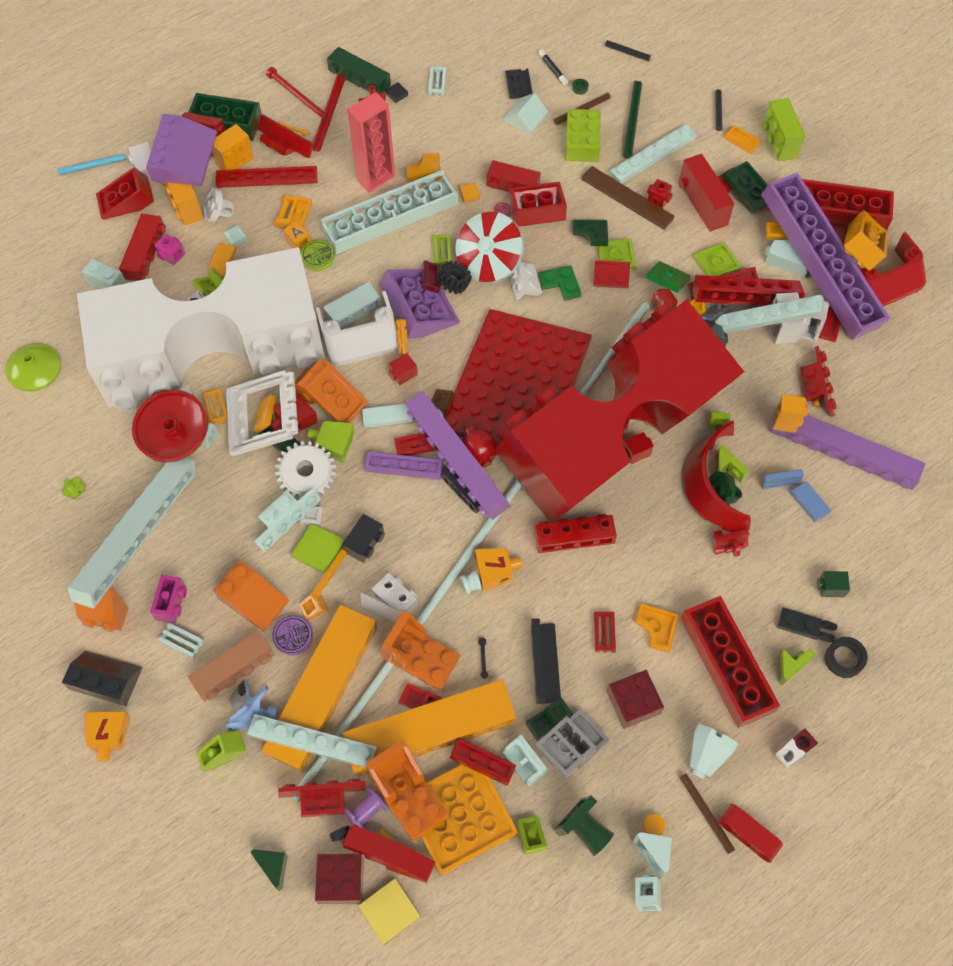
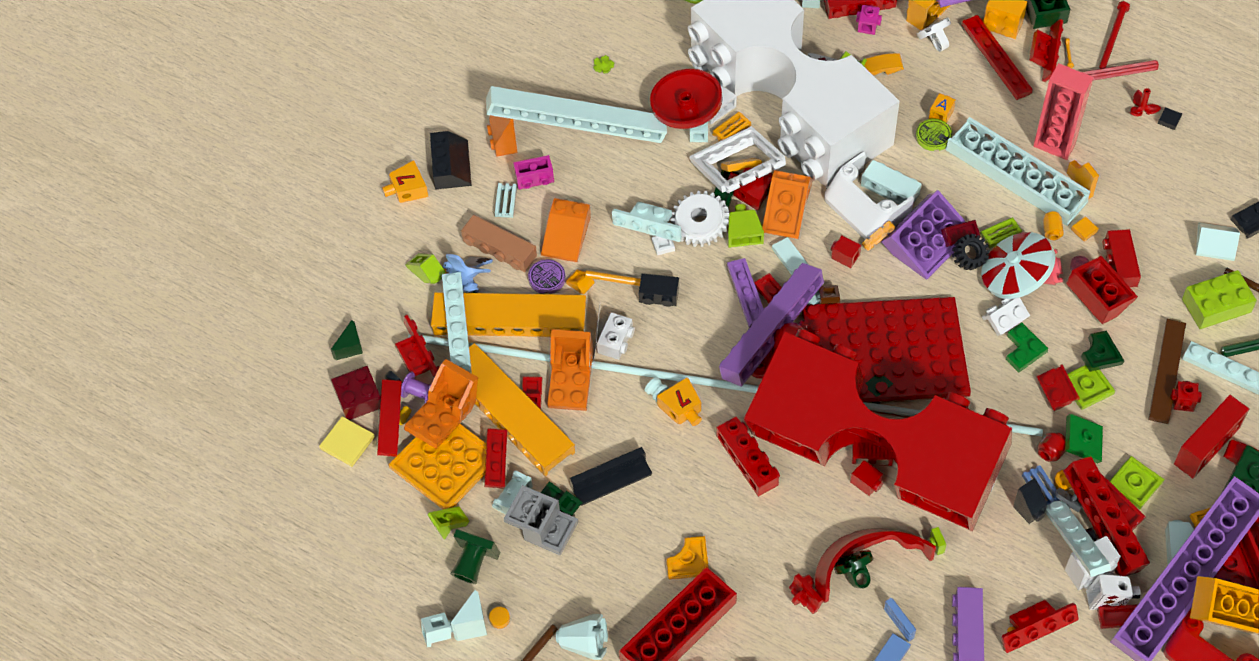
camera: 70 degrees right, 5 degrees down
(235, 236) = (916, 63): light aqua tile -> none
(299, 211) = (970, 99): light orange plate -> none
(318, 548) = (634, 260): lime tile -> none
(358, 70) = (1171, 75): dark green brick -> none
(441, 91) = (1210, 149): light aqua tile -> none
(457, 210) = (1053, 226): none -> light orange brick
(482, 642) = (607, 422): black hinge -> none
(604, 648) = (650, 529): red tile -> none
(635, 699) = (606, 560): dark red brick -> none
(727, 461) = (890, 561): lime slope -> none
(790, 413) = (965, 590): light orange brick -> none

